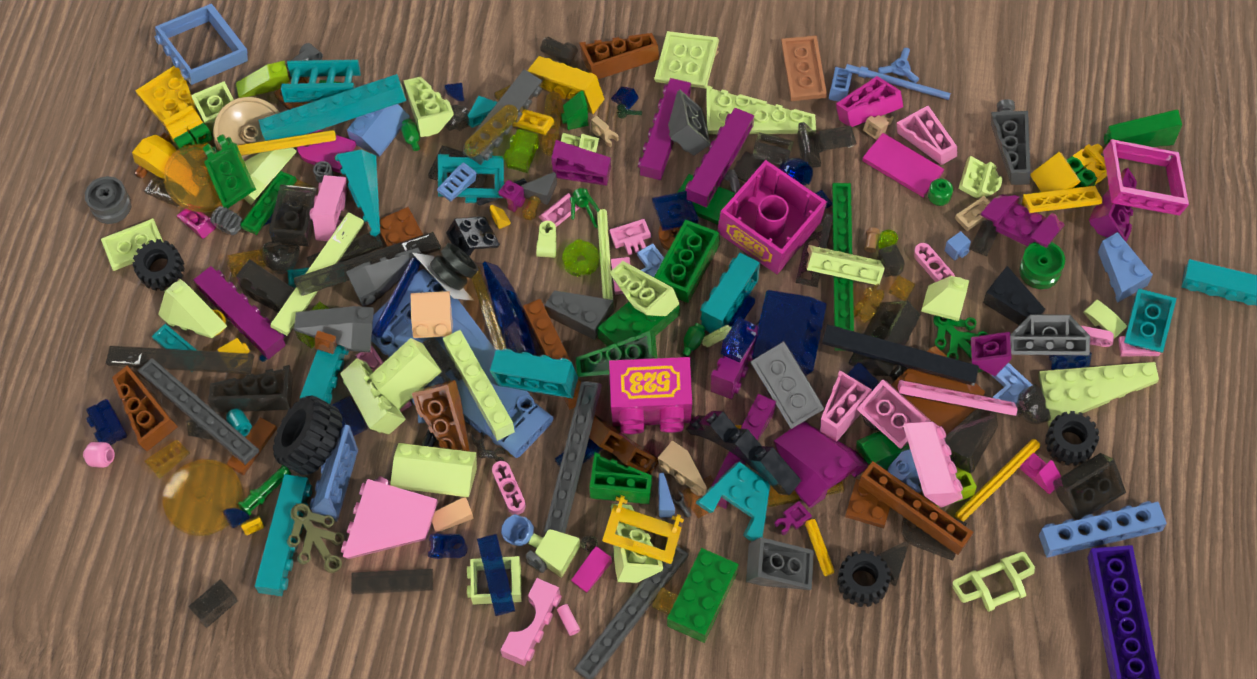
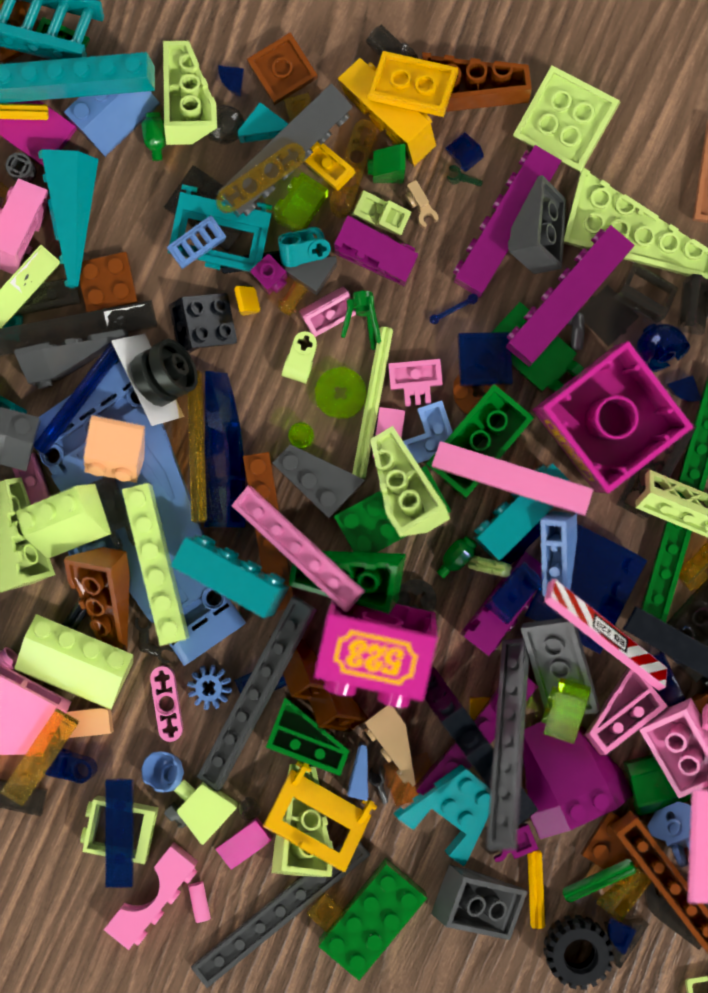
camera: 10 degrees right, 25 degrees up
(423, 538) = (39, 756): none -> clear yellow tile
(488, 77) = (282, 68): none -> dark orange plate
(527, 171) = (300, 247): none -> teal piece
(540, 472) = (218, 687): none -> medium blue gear
(561, 285) = (298, 432): none -> clear neon green wheel
(573, 343) = (298, 548): none -> bright pink tile
(578, 58) = (413, 83): none -> yellow tile
(656, 181) = (472, 299): none -> clear blue hinge
(714, 267) = (512, 478): none -> bright pink tile
(761, 306) = (558, 547): none -> medium blue slope
(763, 431) = (508, 746): none -> dark grey tile
(801, 410) = (566, 711): none -> clear neon green brick
(812, 349) = (606, 634): none -> tile
(863, 525) = (599, 880): none -> green axle
(876, 539) = (624, 895): none -> clear yellow slope
(889, 553) = (620, 934): none -> clear blue tile

